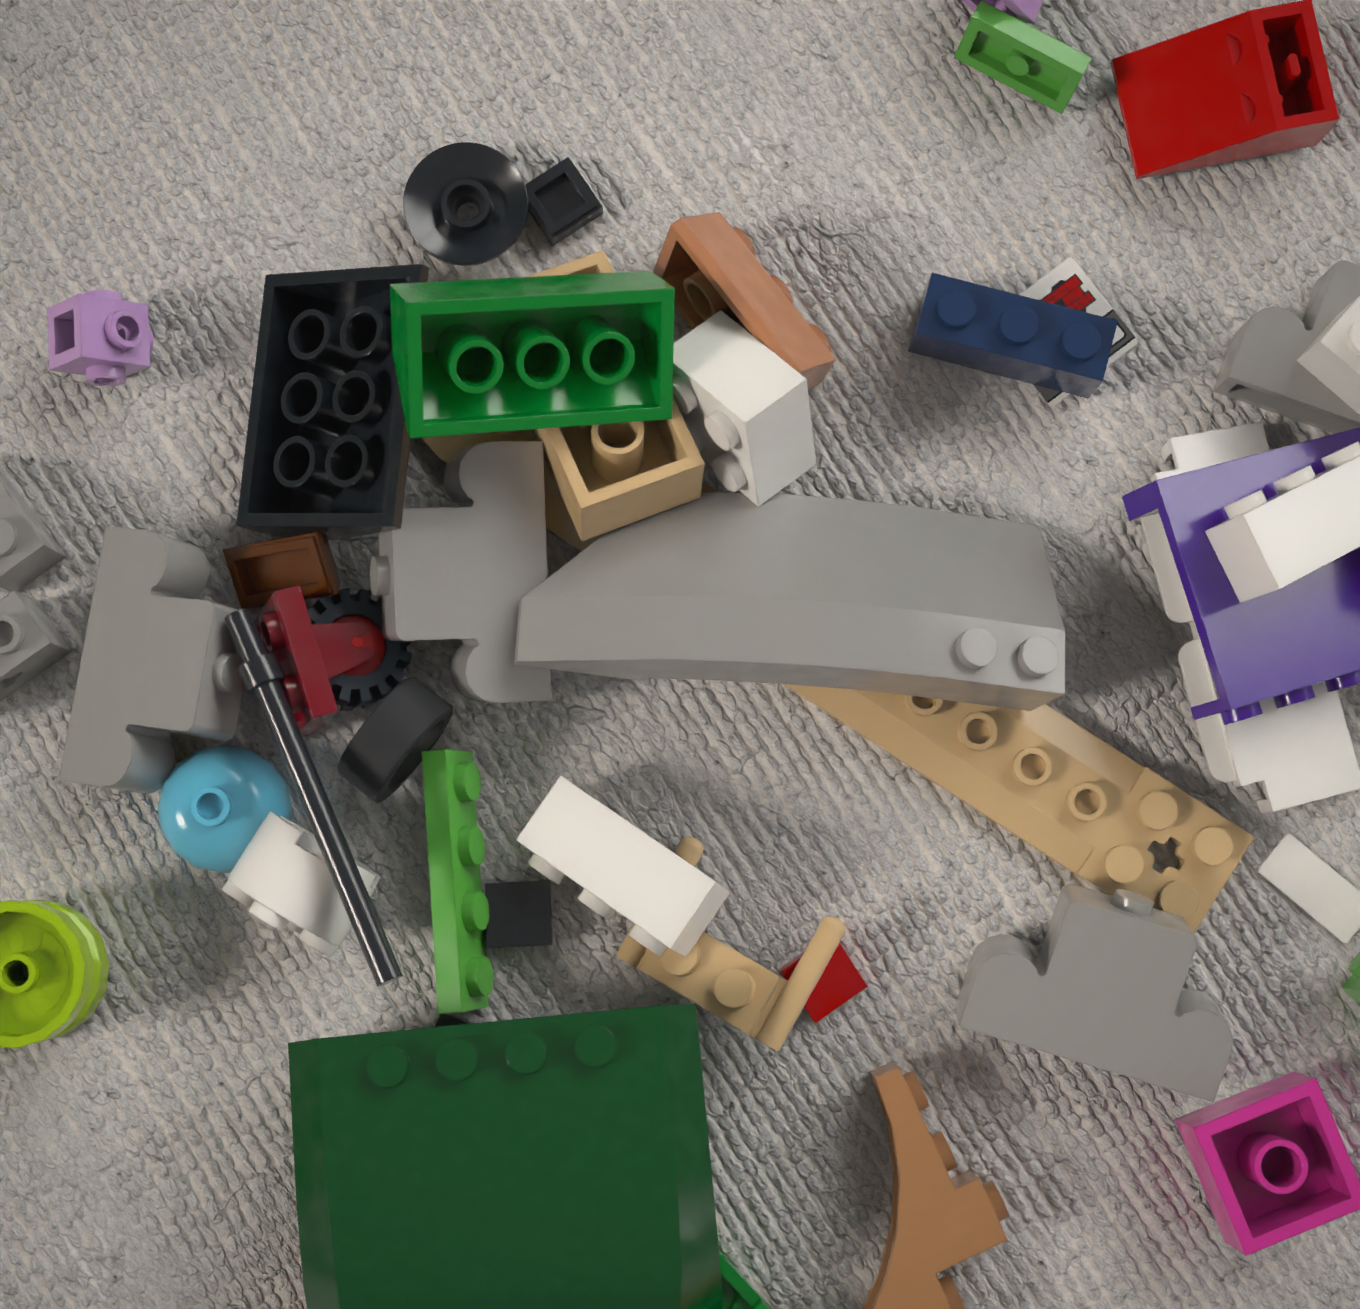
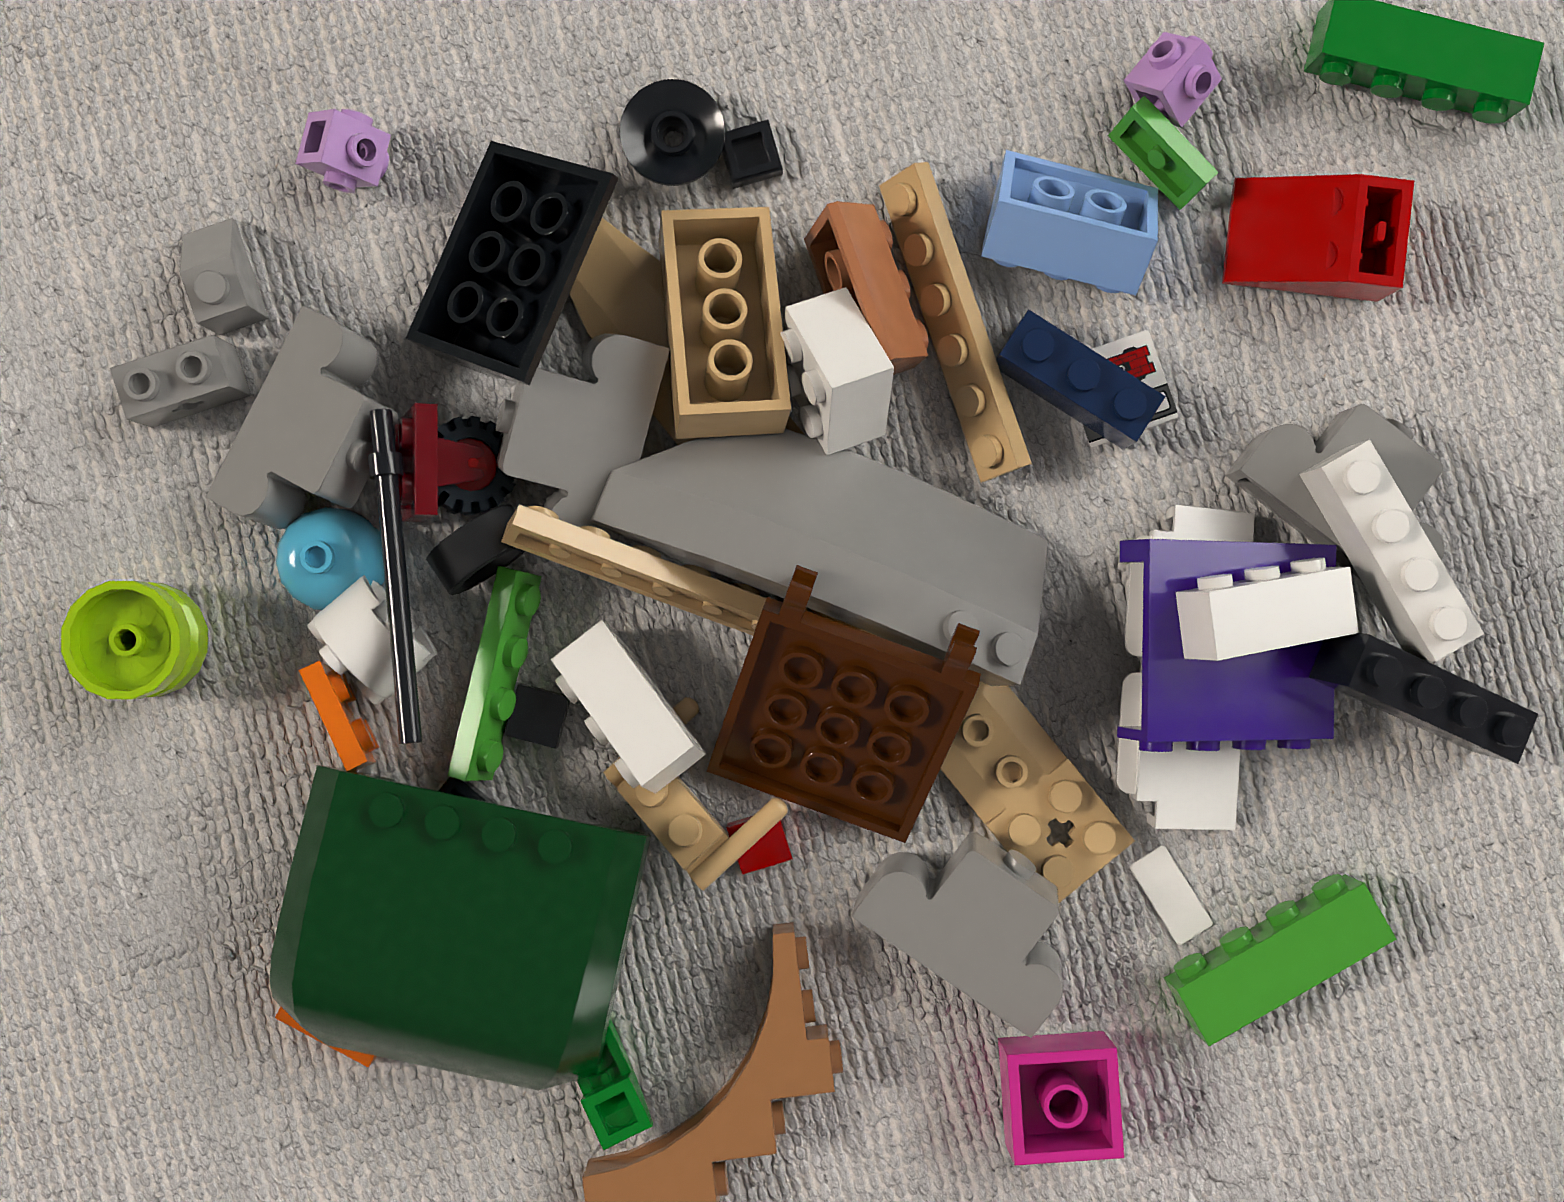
camera: 15 degrees right, 5 degrees up
(277, 964) = (332, 696): none -> orange plate
(281, 564) = (434, 382): reddish brown tile -> none
(533, 352) = (679, 275): green slope -> none
(615, 706) = (634, 568): none -> tan plate
(853, 316) = (954, 322): none -> tan plate
(874, 795) = (843, 715): none -> reddish brown plate
(947, 165) = (1072, 223): none -> light blue slope

